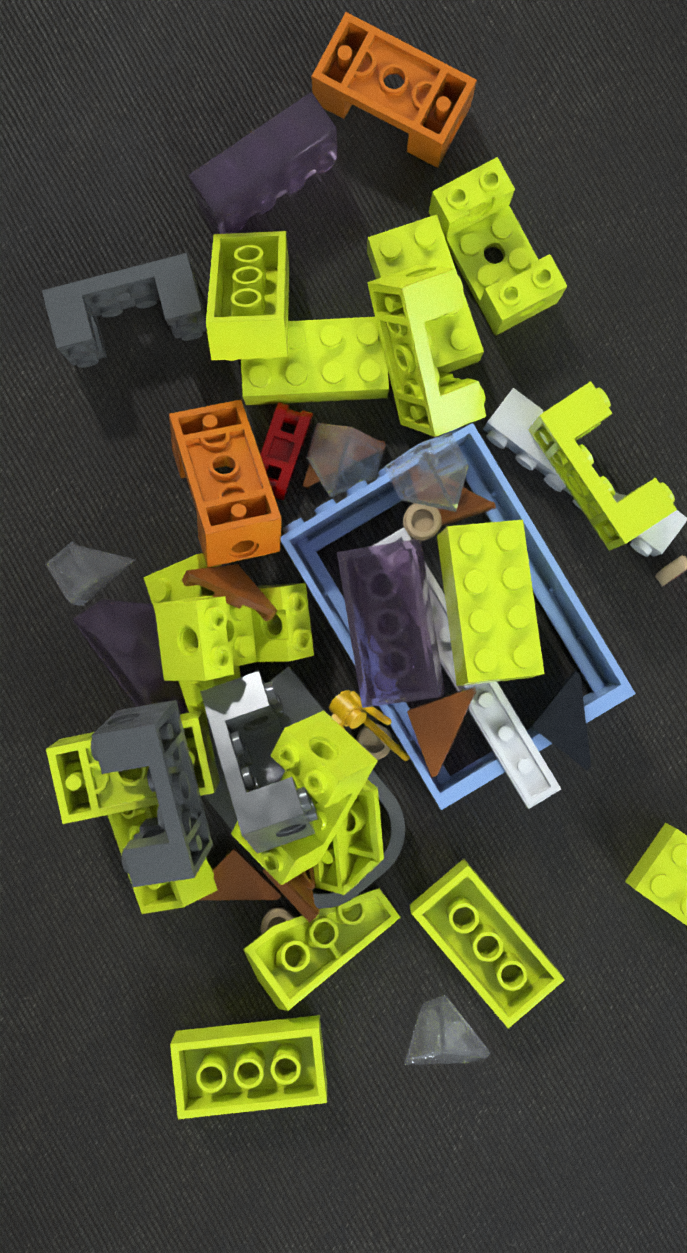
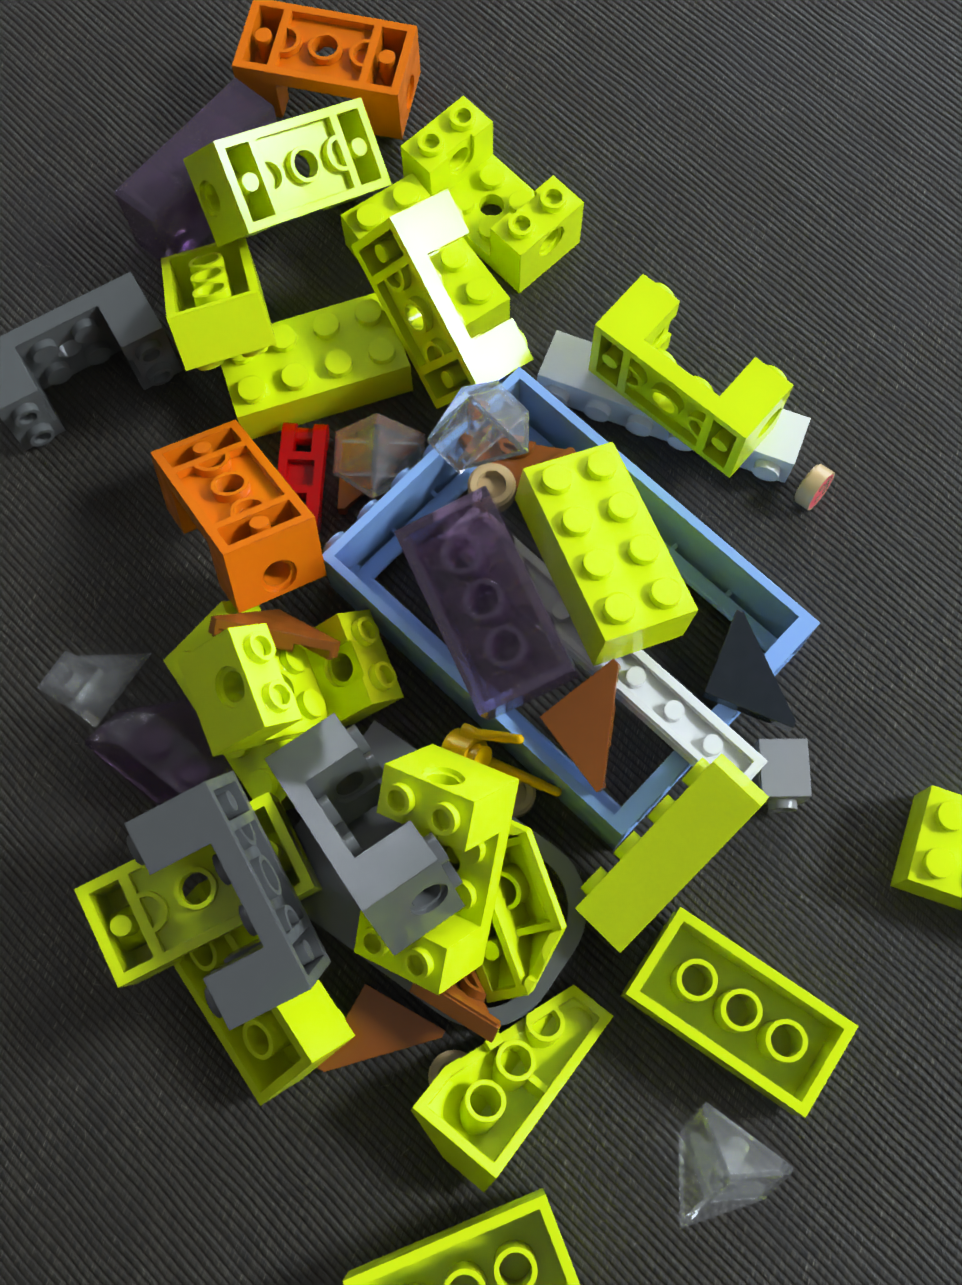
camera: 15 degrees left, 15 degrees down
(302, 205) = (252, 177): none -> neon yellow plate
(472, 831) = (671, 851): none -> neon yellow wedge
(575, 785) = (785, 774): none -> light grey brick

